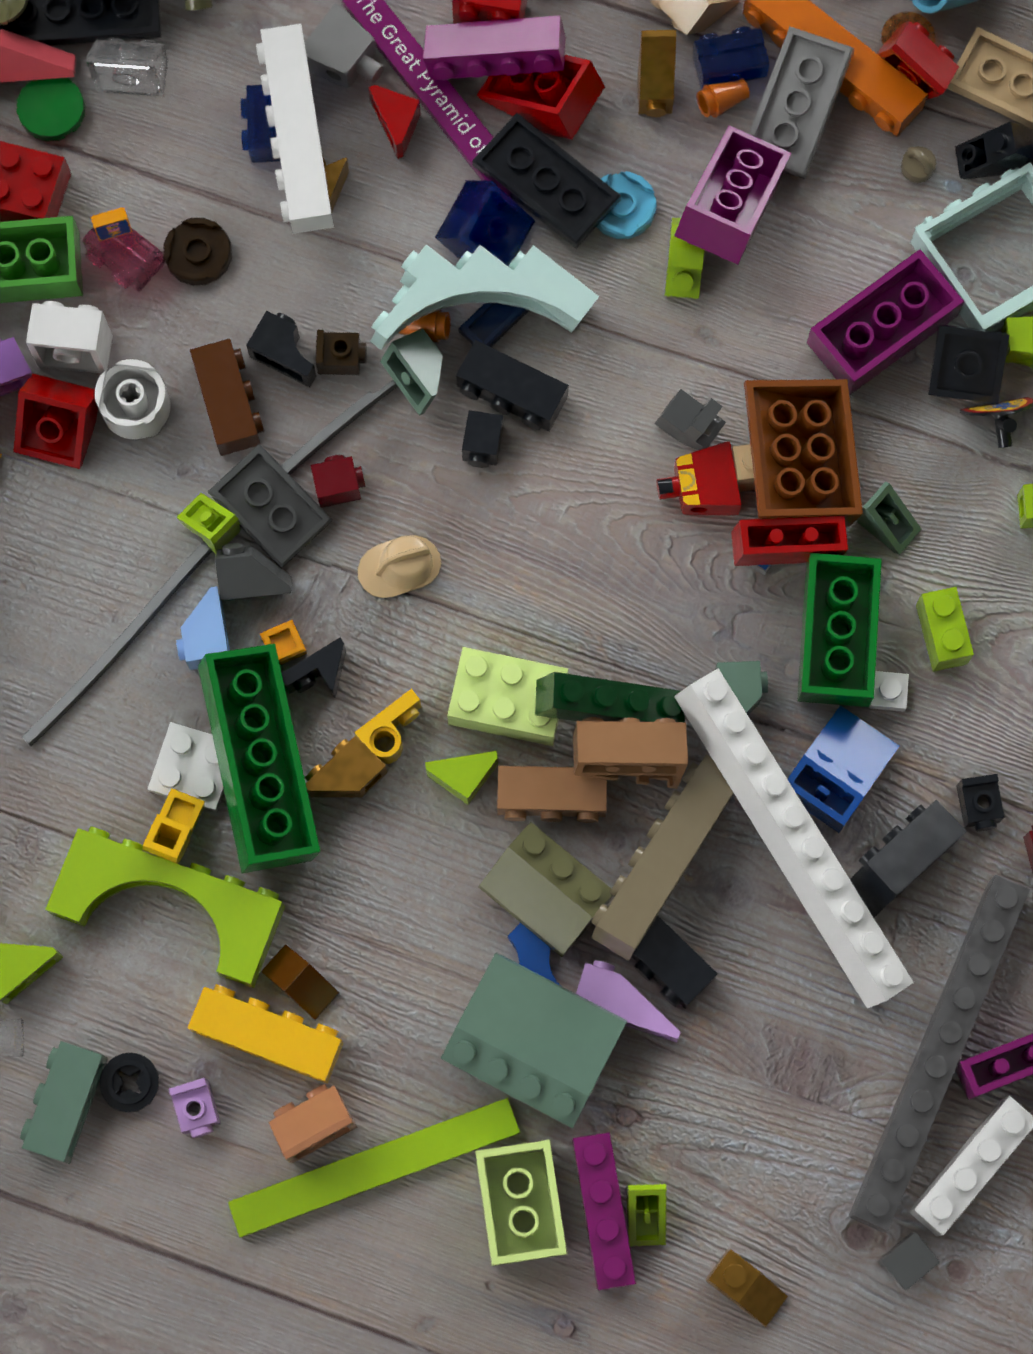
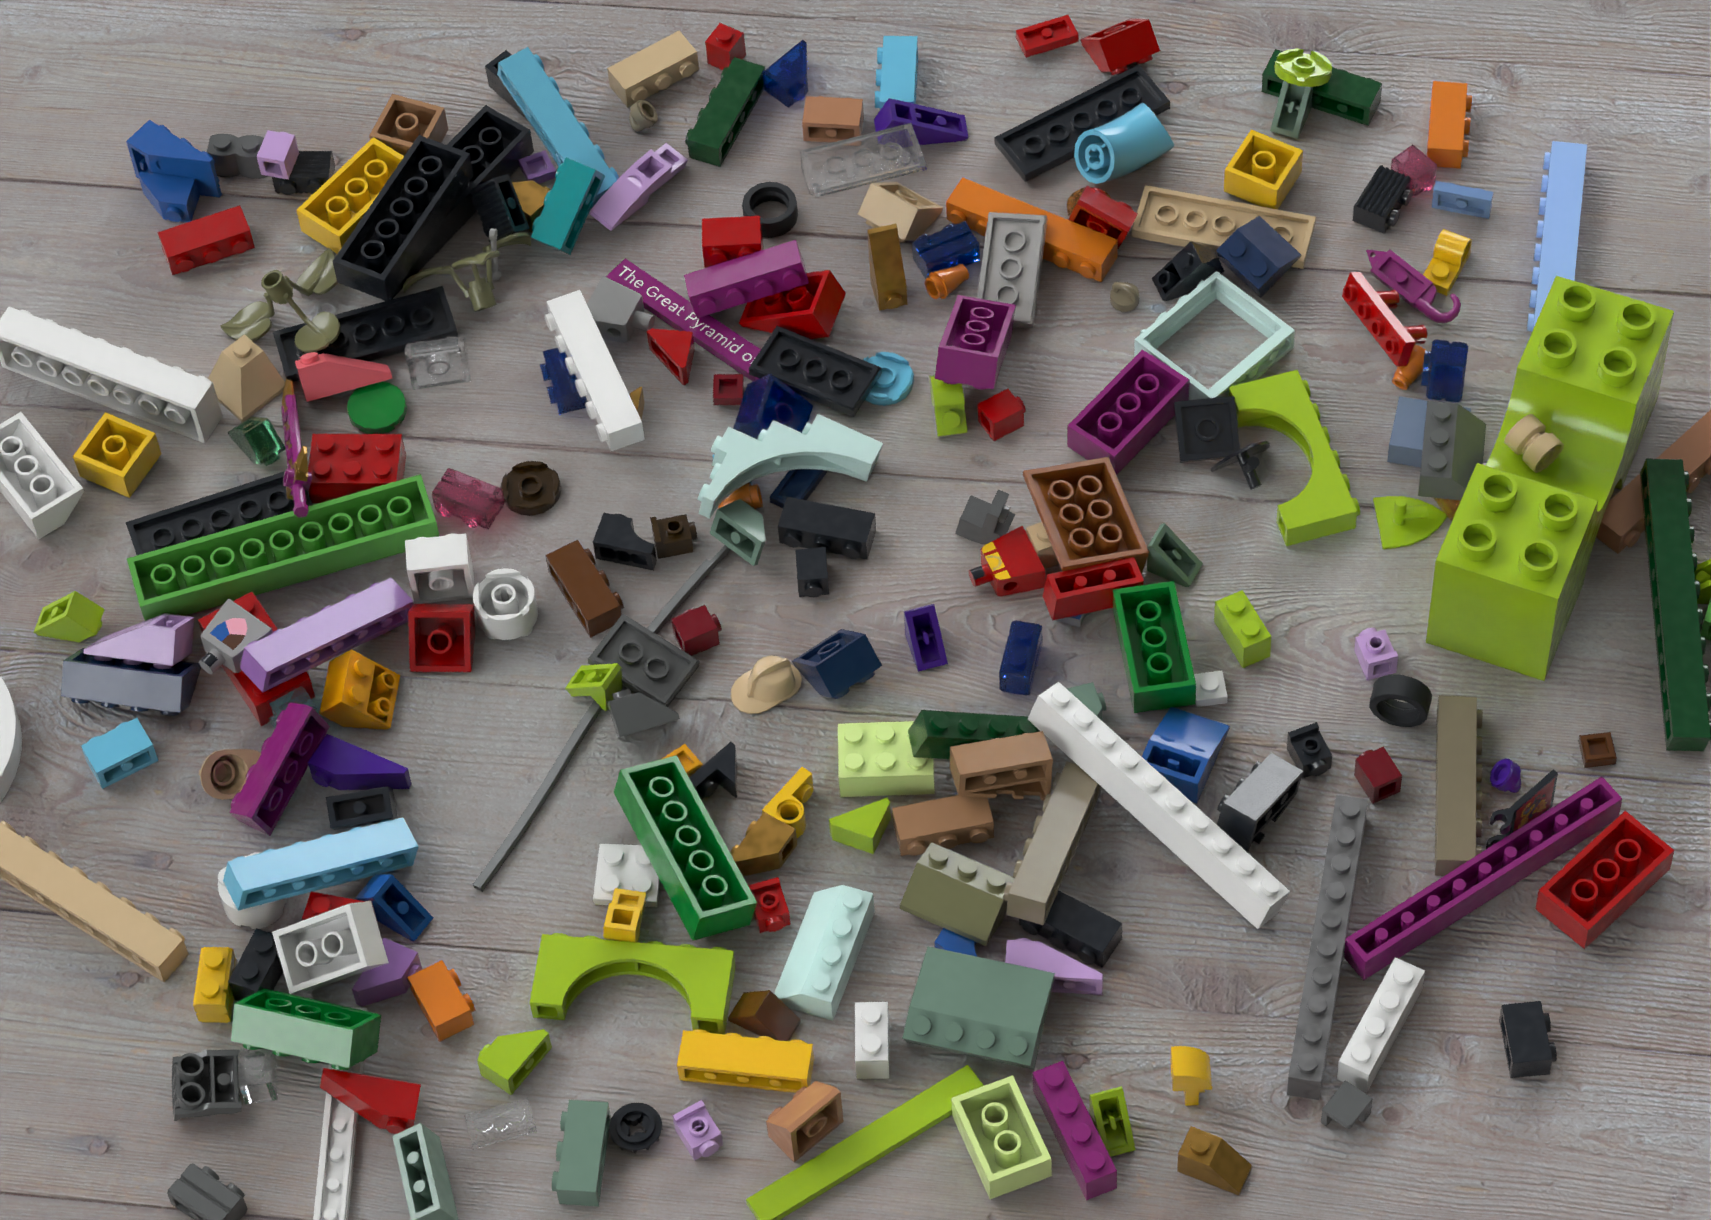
camera: 10 degrees left, 20 degrees down
(111, 224) = (456, 472): tile -> none
(203, 630) = (607, 764): light blue slope -> none
(342, 833) = (771, 908): none -> red brick
(383, 918) = (826, 950): none -> light aqua slope
(409, 1044) = (872, 1040): none -> white brick
(444, 179) = (728, 389): none -> dark red plate
(483, 560) = (838, 663): none -> dark blue slope
(587, 555) = (924, 637): none -> dark purple slope
(688, 605) = (1020, 657): none -> clear blue brick
(742, 286) = (1001, 414): none -> red brick
(747, 1182) = (1190, 1072): none -> yellow brick

